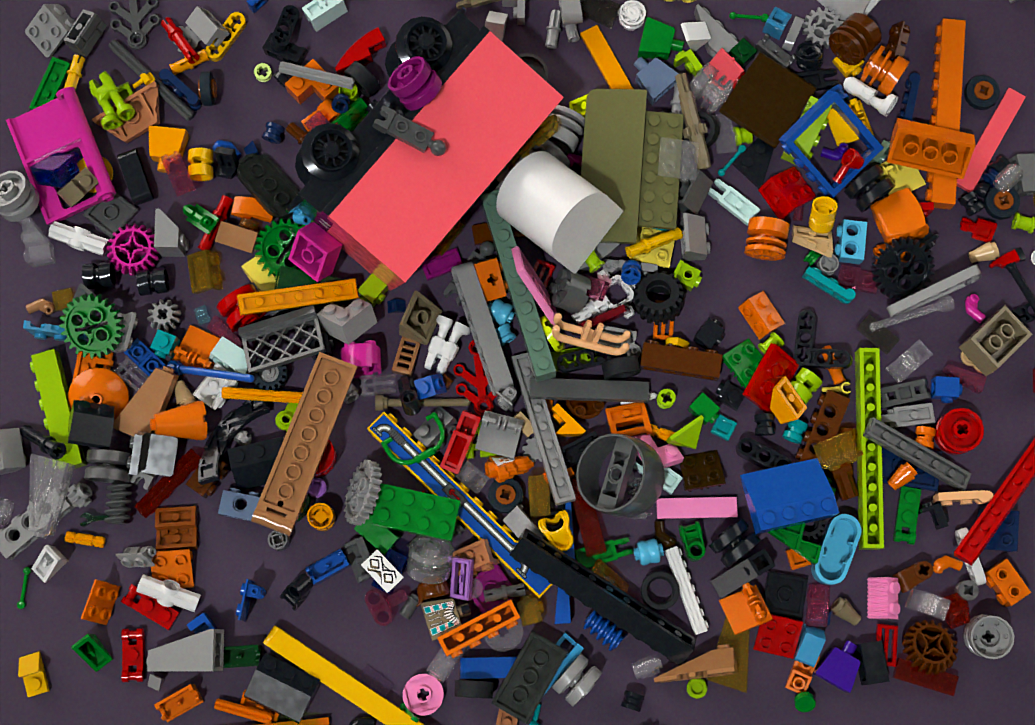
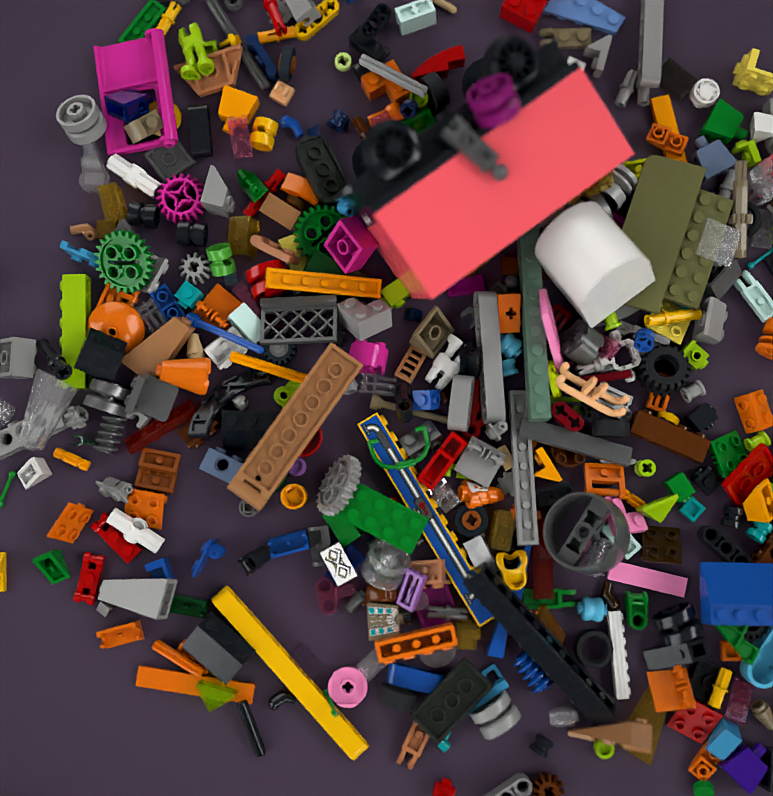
camera: 15 degrees right, 5 degrees up
(64, 270) = (112, 202): none -> clear yellow bracket
(189, 301) = (221, 261): none -> bright green wheel
(208, 119) = (282, 93): none -> light nougat tile
(227, 162) = (289, 138): black bracket -> none
(239, 275) = (274, 249): none -> nougat hinge
(462, 337) = (469, 360): none -> black hinge
(465, 380) = (460, 403): none -> light grey beam
(576, 363) = (569, 413): none -> dark red beam
(606, 70) = (666, 140): none -> orange slope
(694, 310) = (693, 391): none -> light grey bush
(794, 595) = (720, 688): none -> yellow axle

